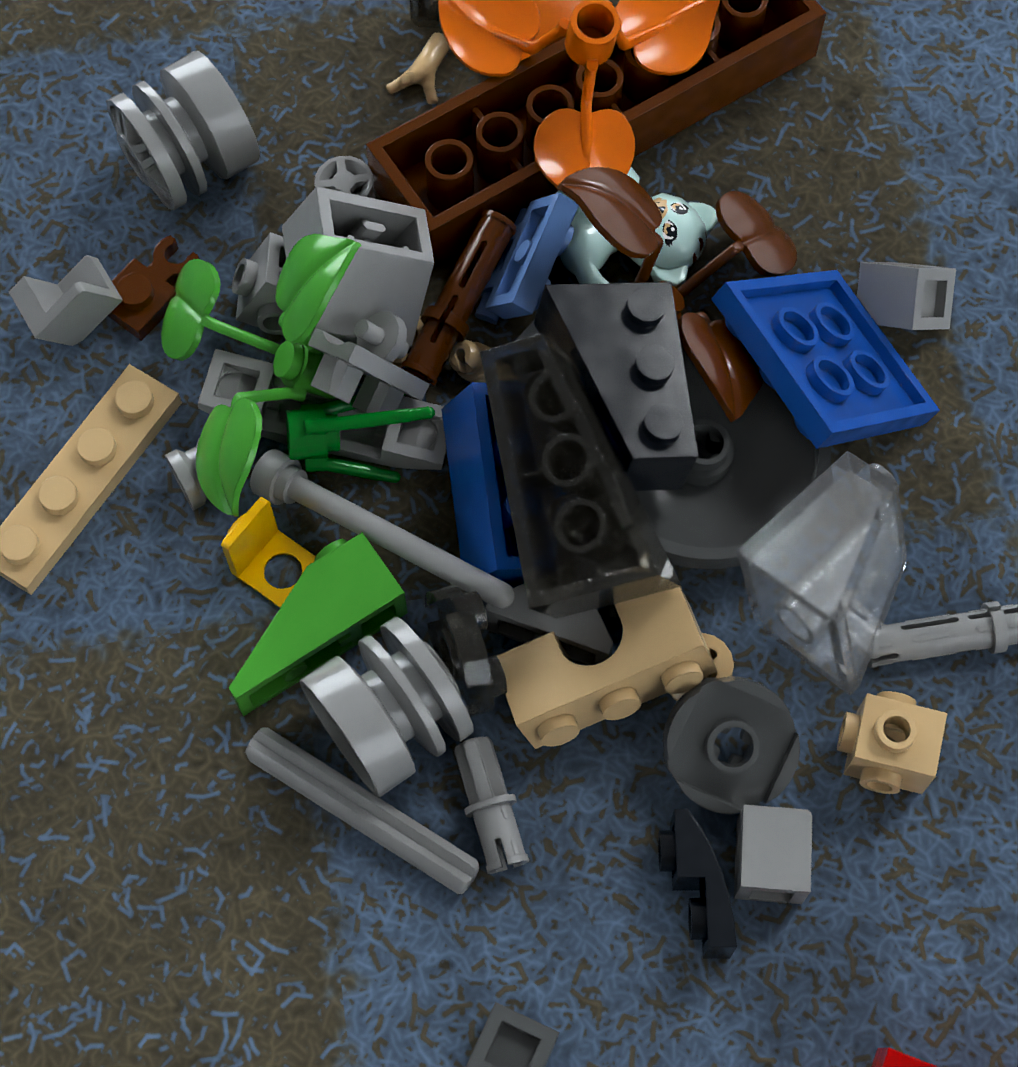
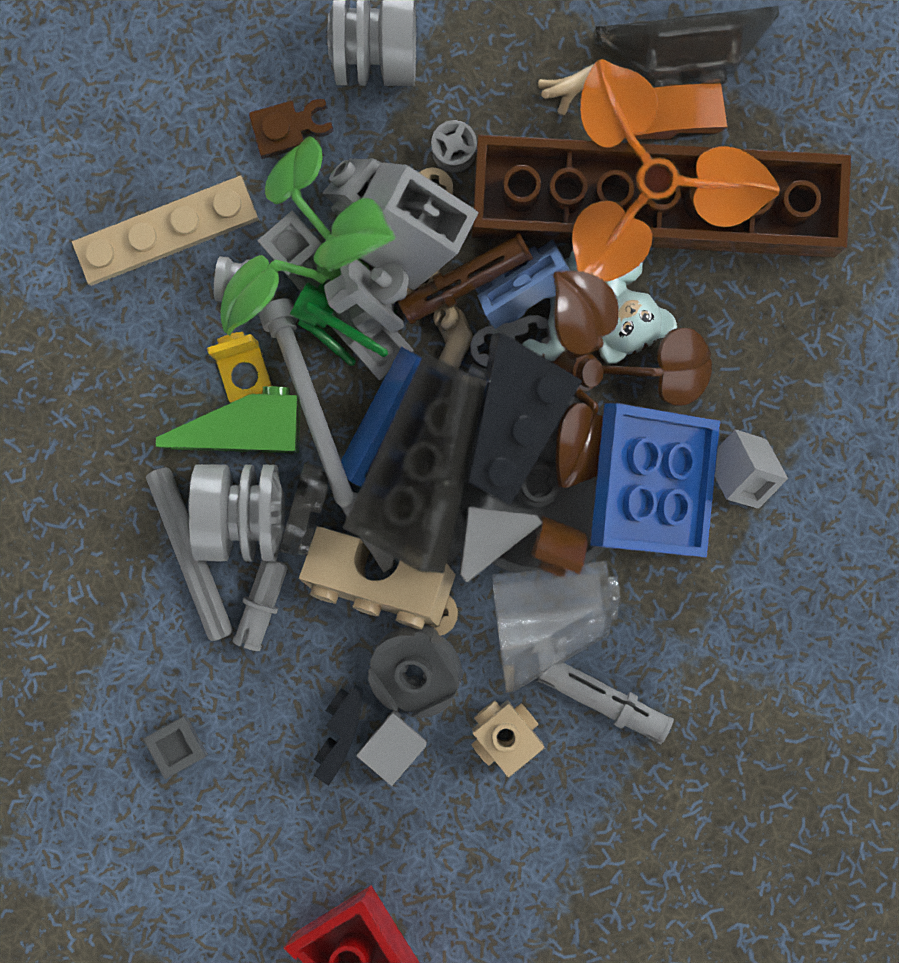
camera: 40 degrees right, 20 degrees up
(68, 309) = (228, 107): light grey panel -> none
(695, 518) = (489, 536): none -> light grey slope
(786, 470) = (559, 547): none -> reddish brown slope

